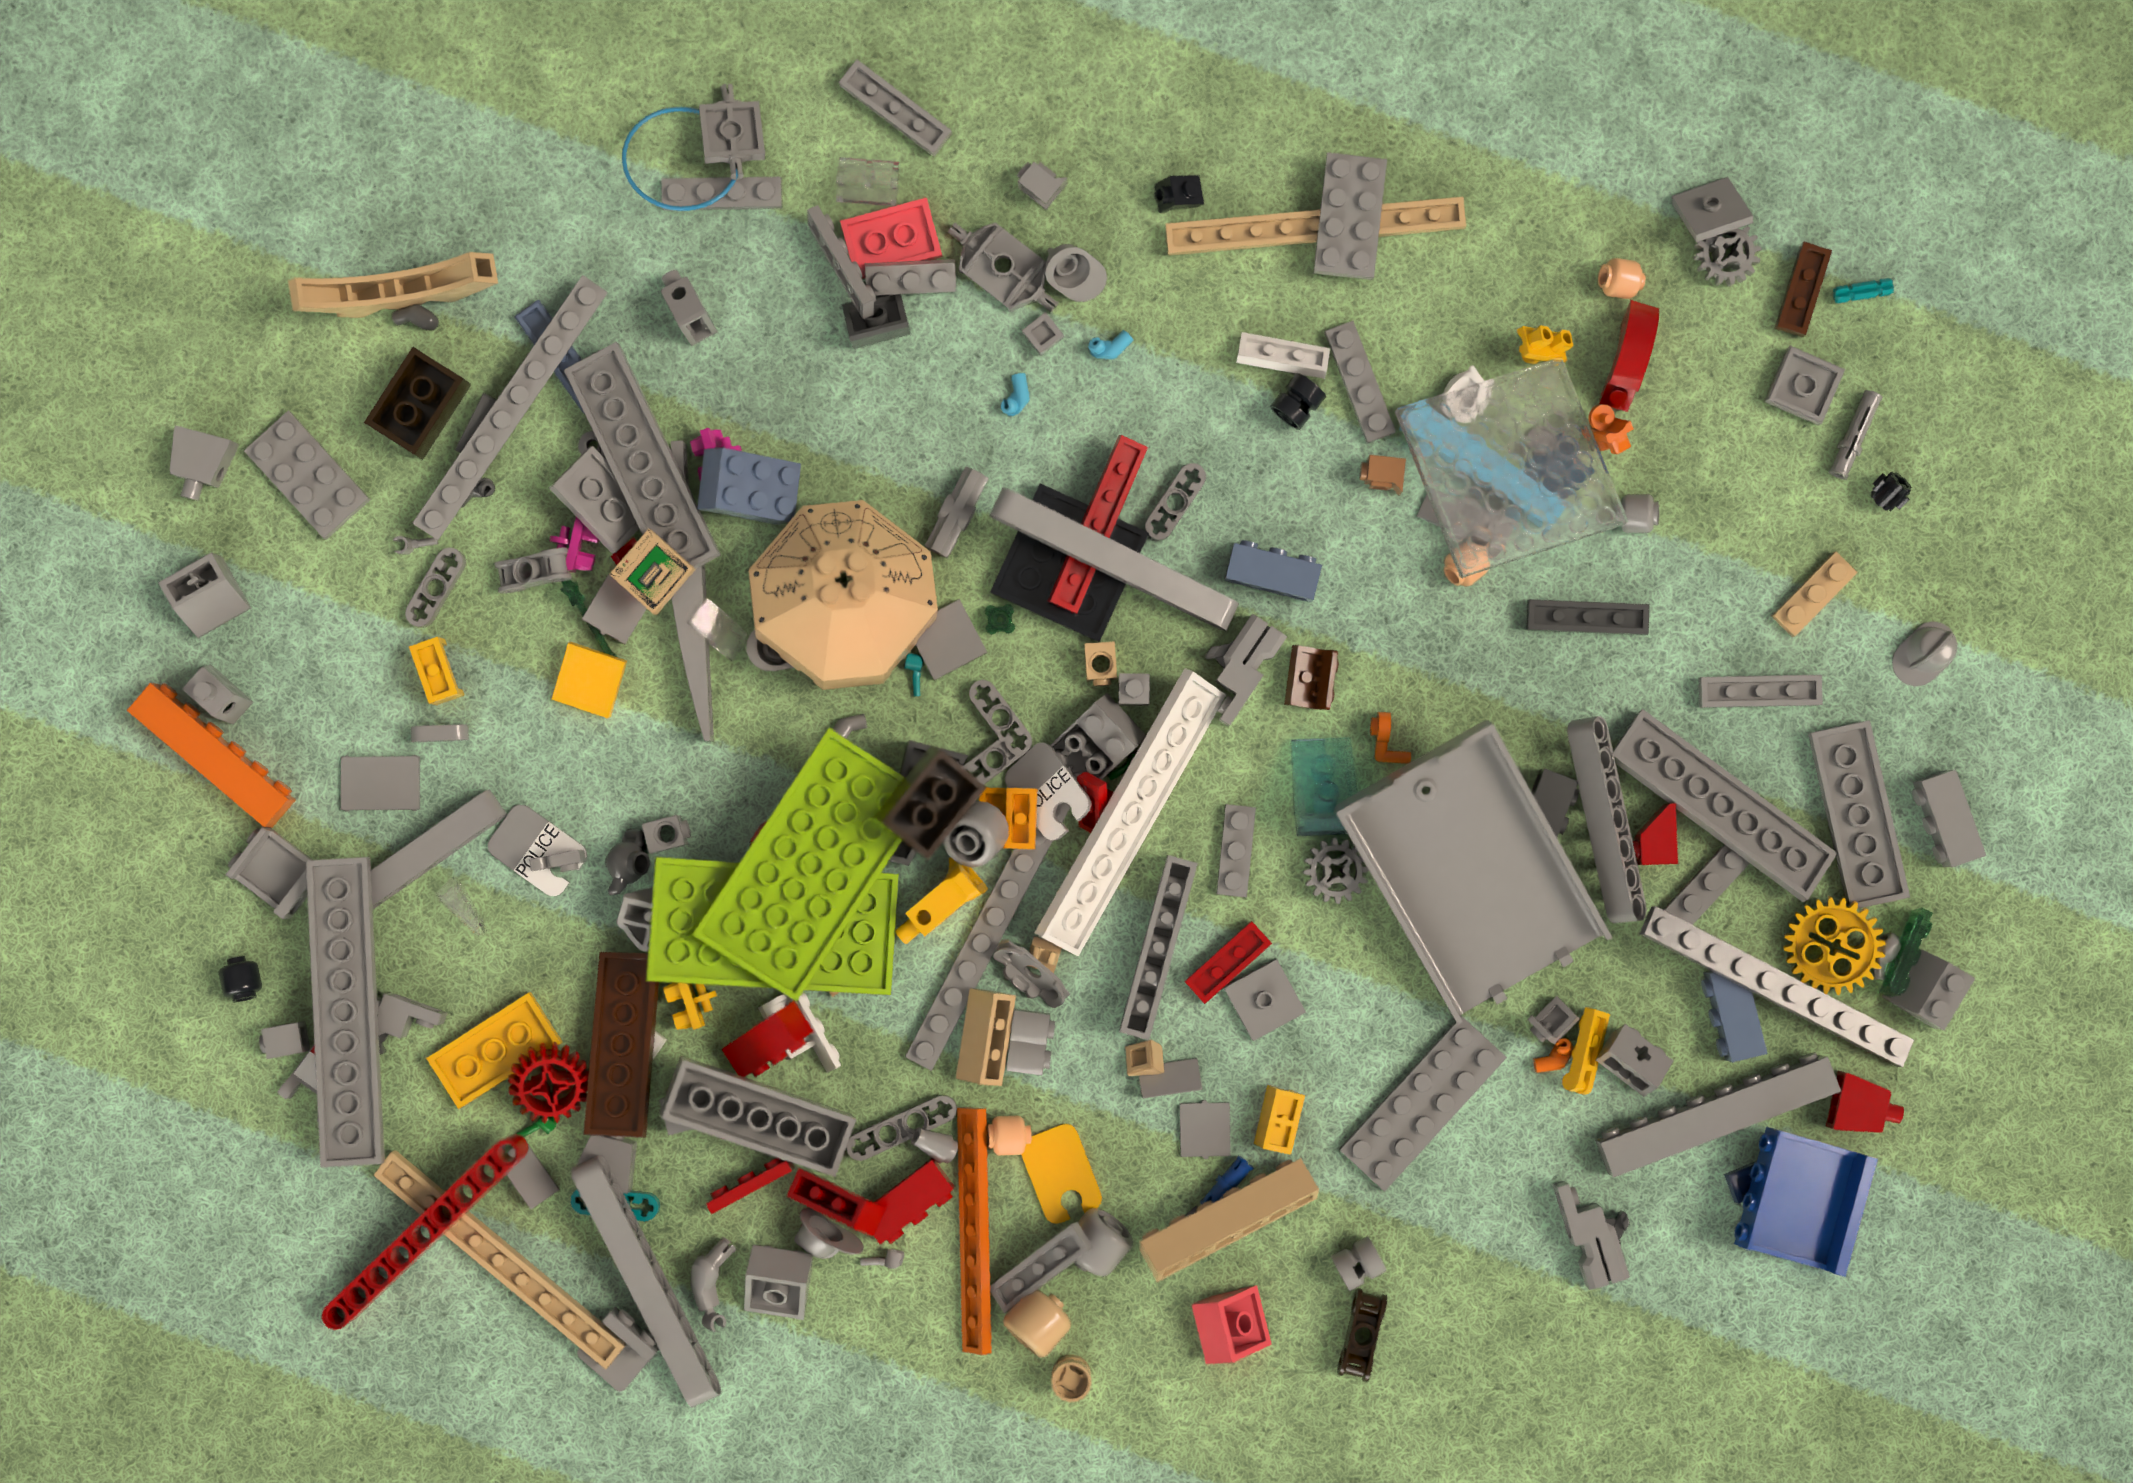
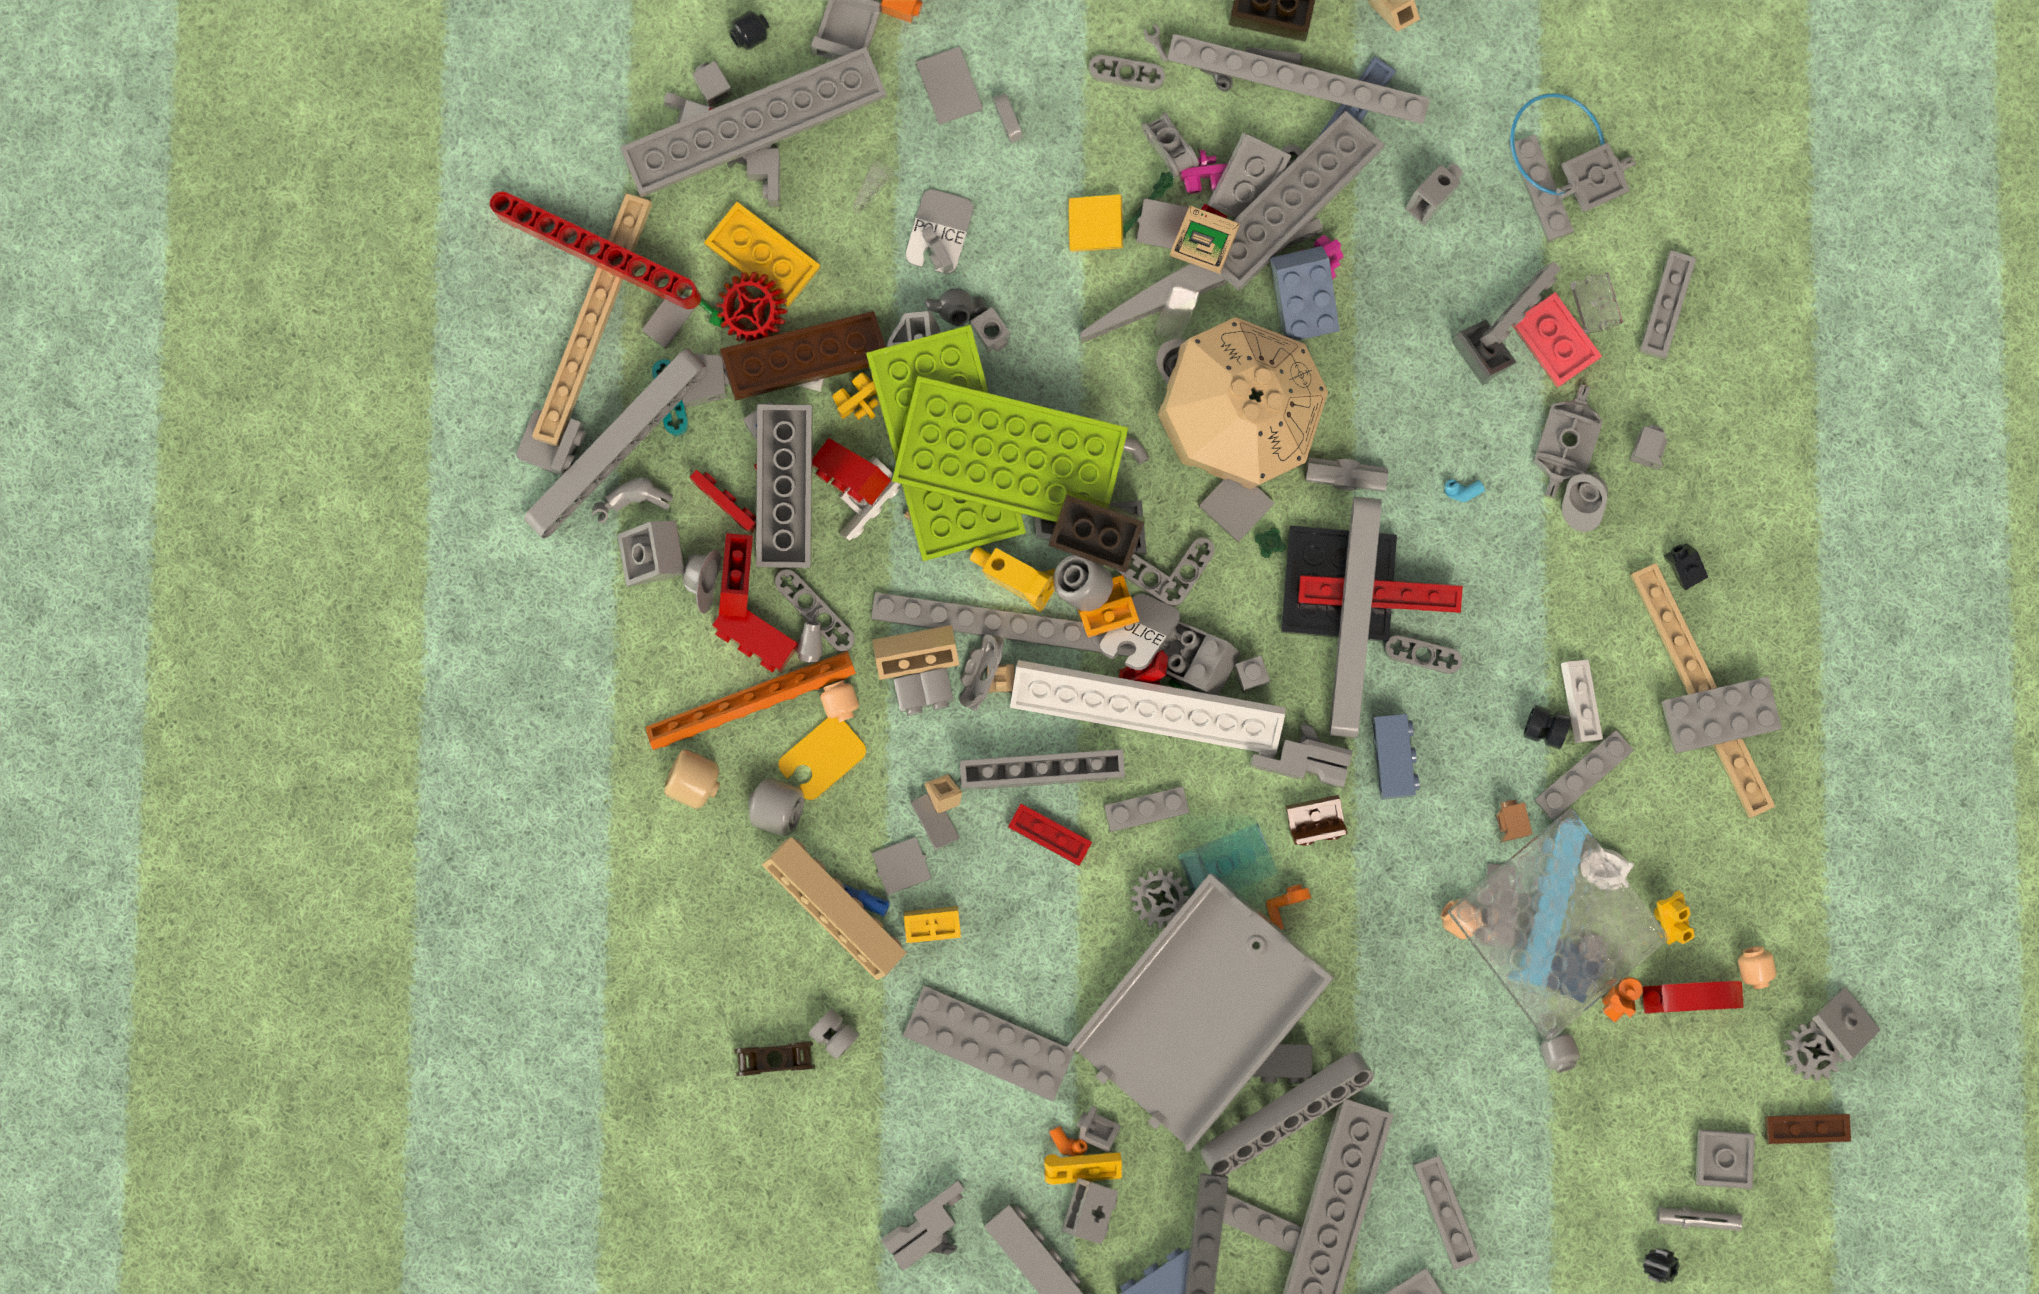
camera: 70 degrees right, 5 degrees down
(434, 846) = (913, 147): light grey beam -> none
(435, 671) = (1057, 96): yellow panel -> none
(893, 1259) = (702, 643): light grey hand -> none
(911, 277) = (1530, 367): light grey plate -> none
(915, 663) = (1207, 486): teal hand -> none
(1041, 1266) = (740, 764): light grey plate -> none
(1043, 333) = (1524, 493): light grey plate -> none
(1071, 1378) = (654, 824): tan wheel -> none
(1100, 649) = (1274, 632): tan brick -> none
(1109, 349) = (1532, 555): medium azure arm -> none
(1231, 1325) = (745, 945): coral slope -> none
(1264, 999) = (1029, 877): light grey plate -> none
(1587, 617) = (1455, 1040): dark grey plate -> none
(1658, 838) = (1284, 1166): red slope -> none
(1814, 594) = (1547, 1231): tan plate -> none
(1863, 290) = (1827, 1182): teal axle -> none

